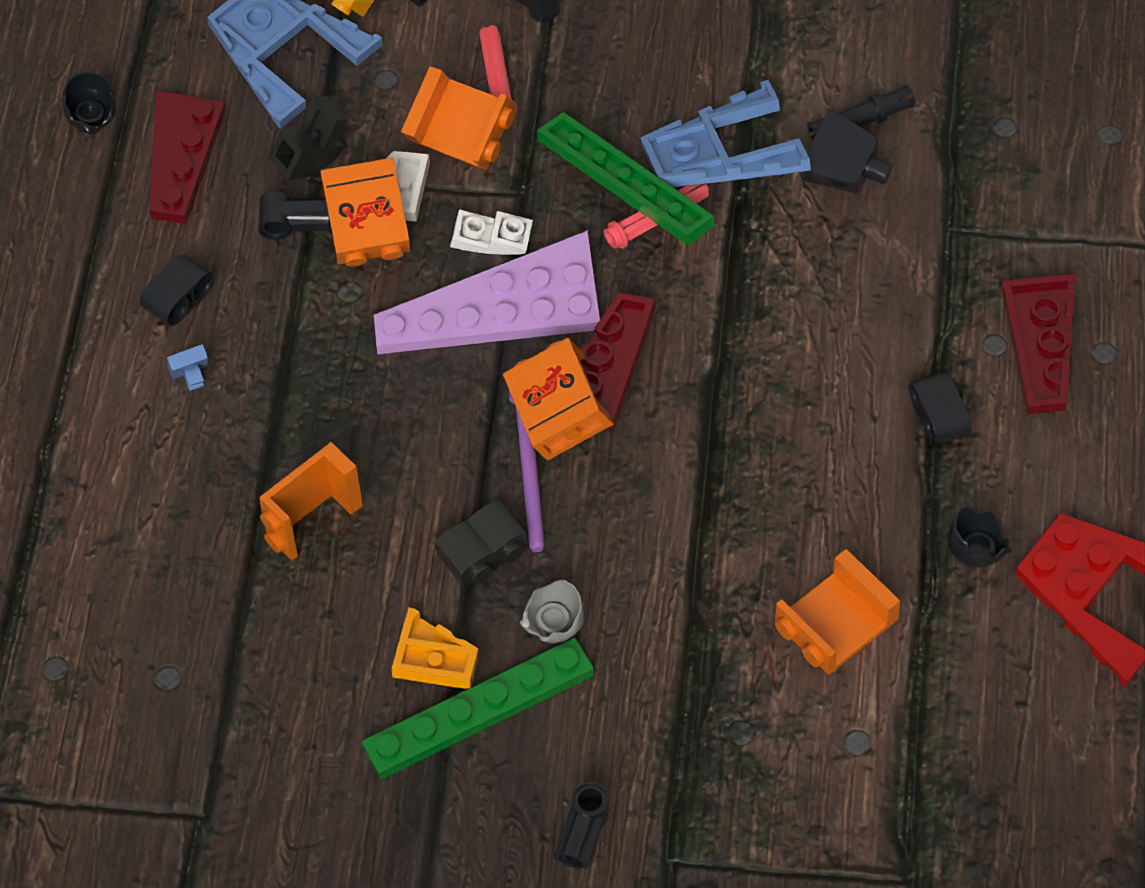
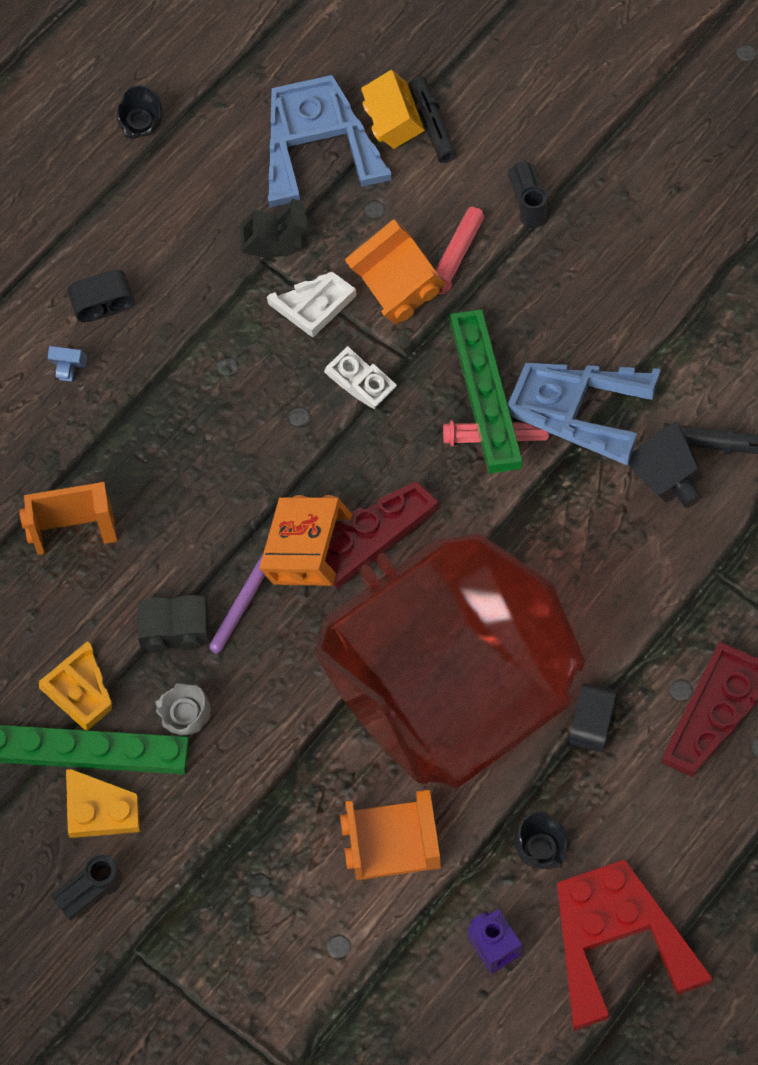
camera: 35 degrees right, 5 degrees up
(181, 149) = (184, 185): dark red wing -> none
(282, 215) = (219, 279): black piece -> none
(365, 212) = (271, 309): orange panel -> none
(521, 299) = (345, 444): lavender wing -> none
(535, 750) = (99, 807): none -> light orange wing
(783, 412) = (451, 657): none -> clear red windscreen
(1000, 648) = (494, 940): none -> dark purple brick

